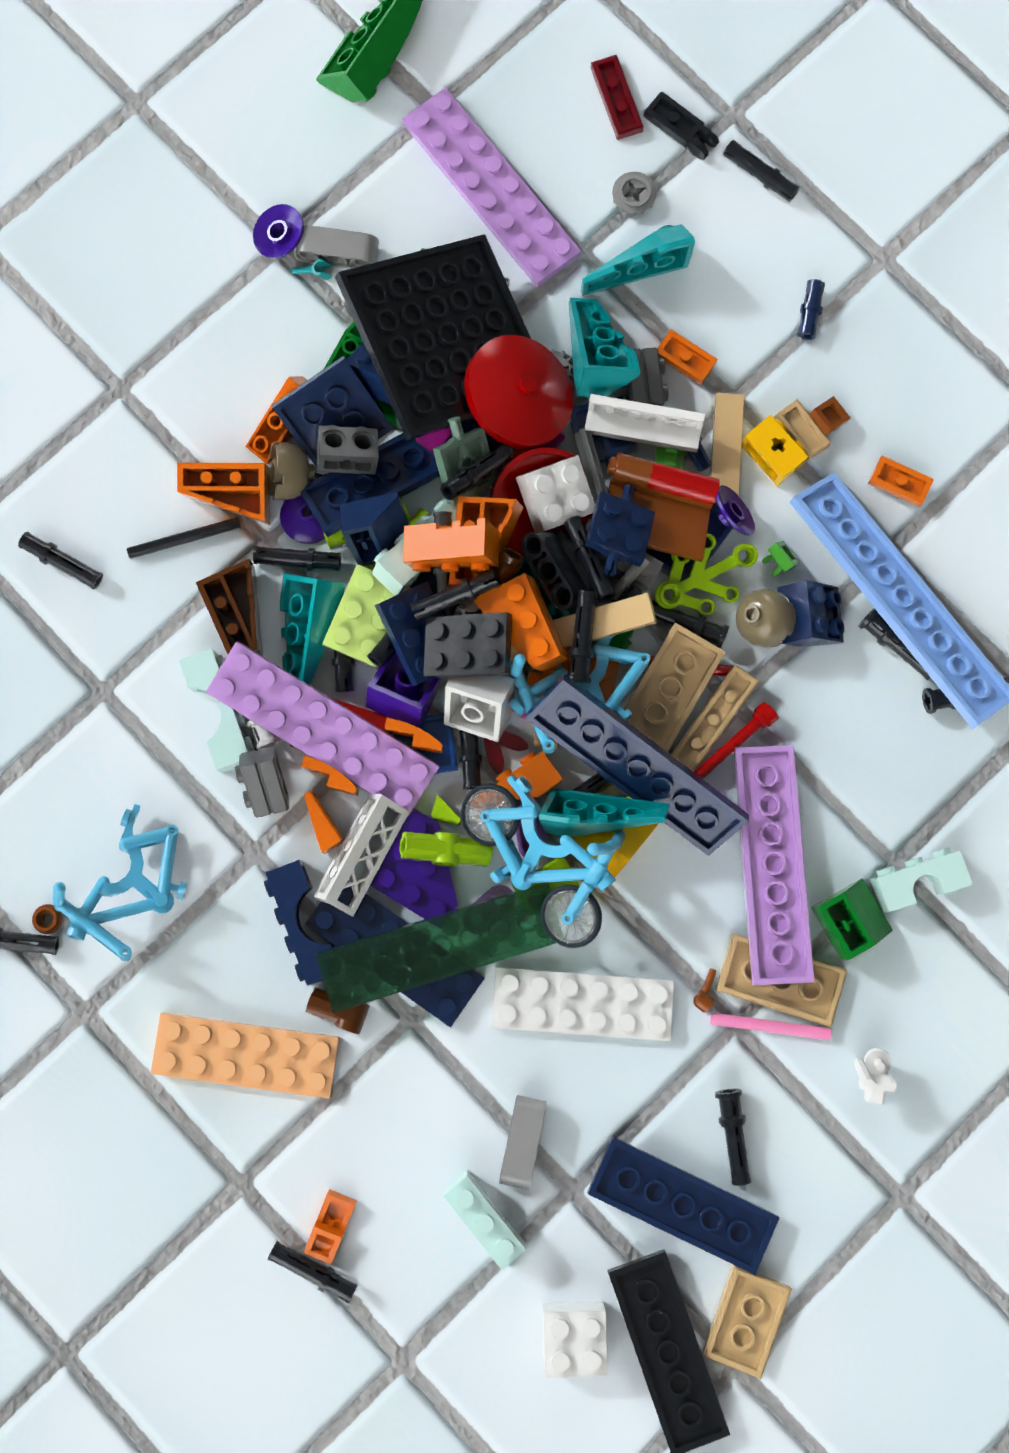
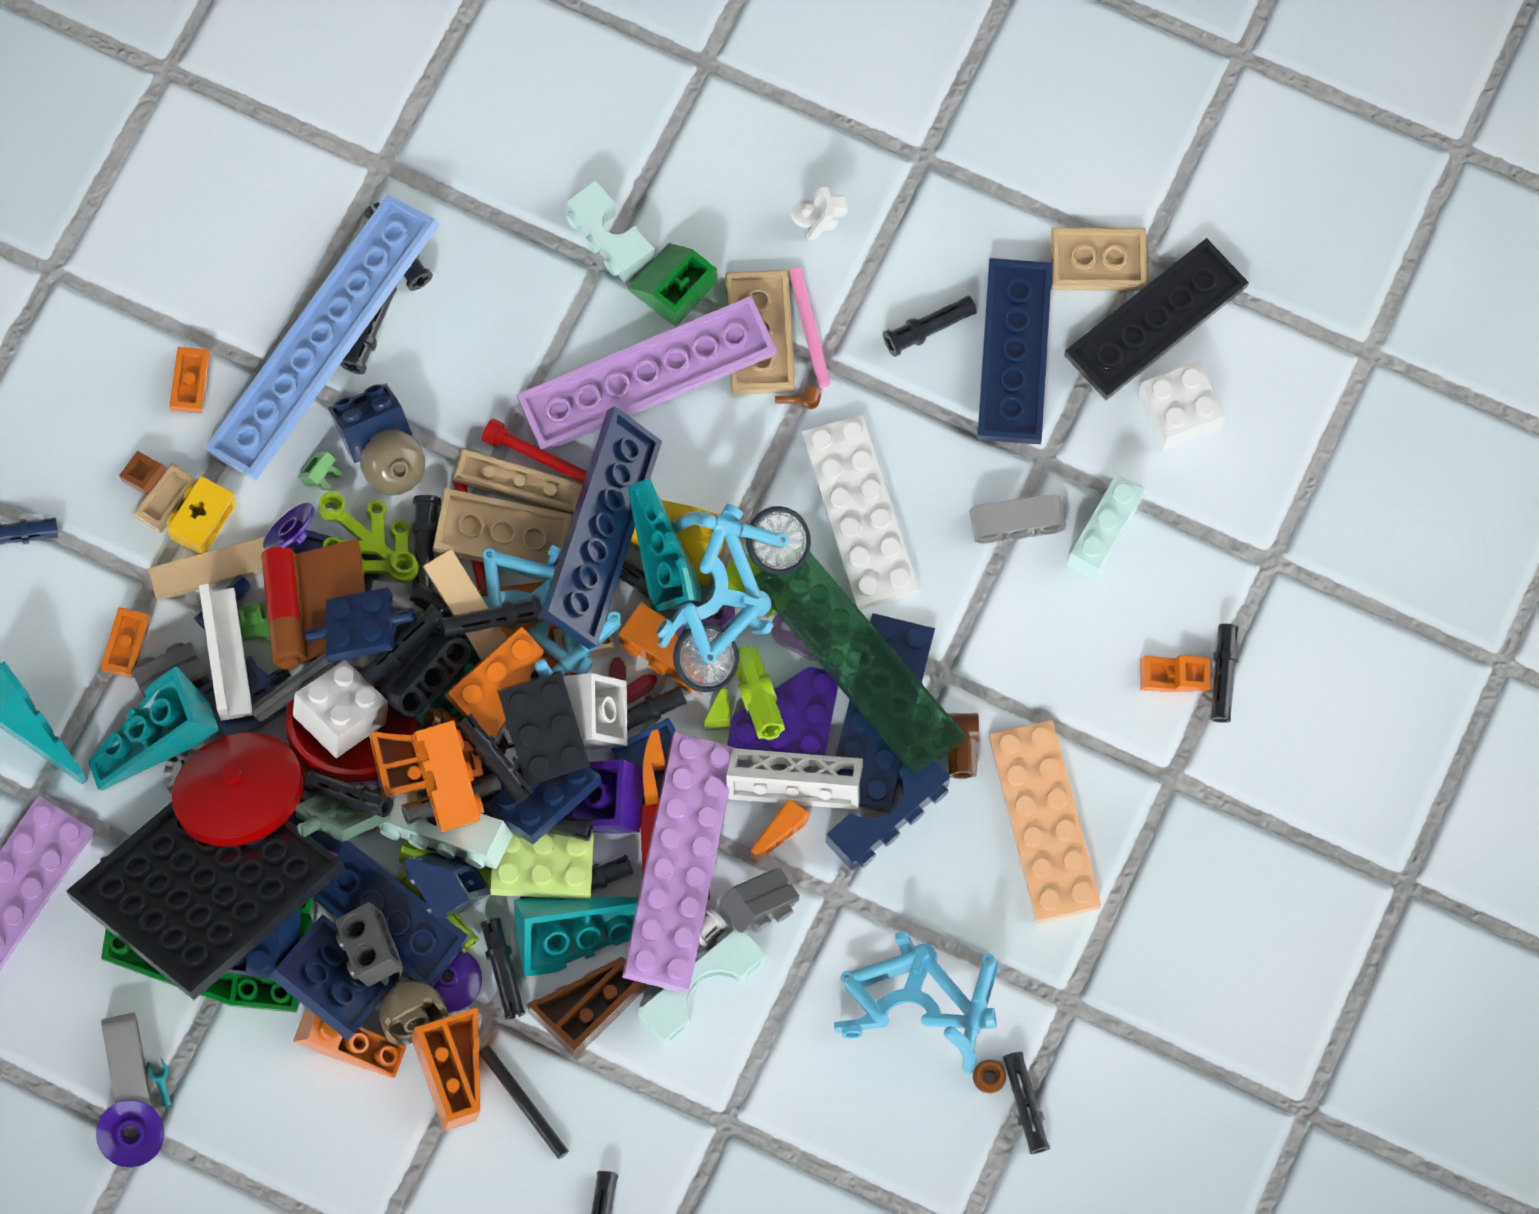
camera: 110 degrees left, 10 degrees down
(336, 780) = (727, 835): orange slope -> none

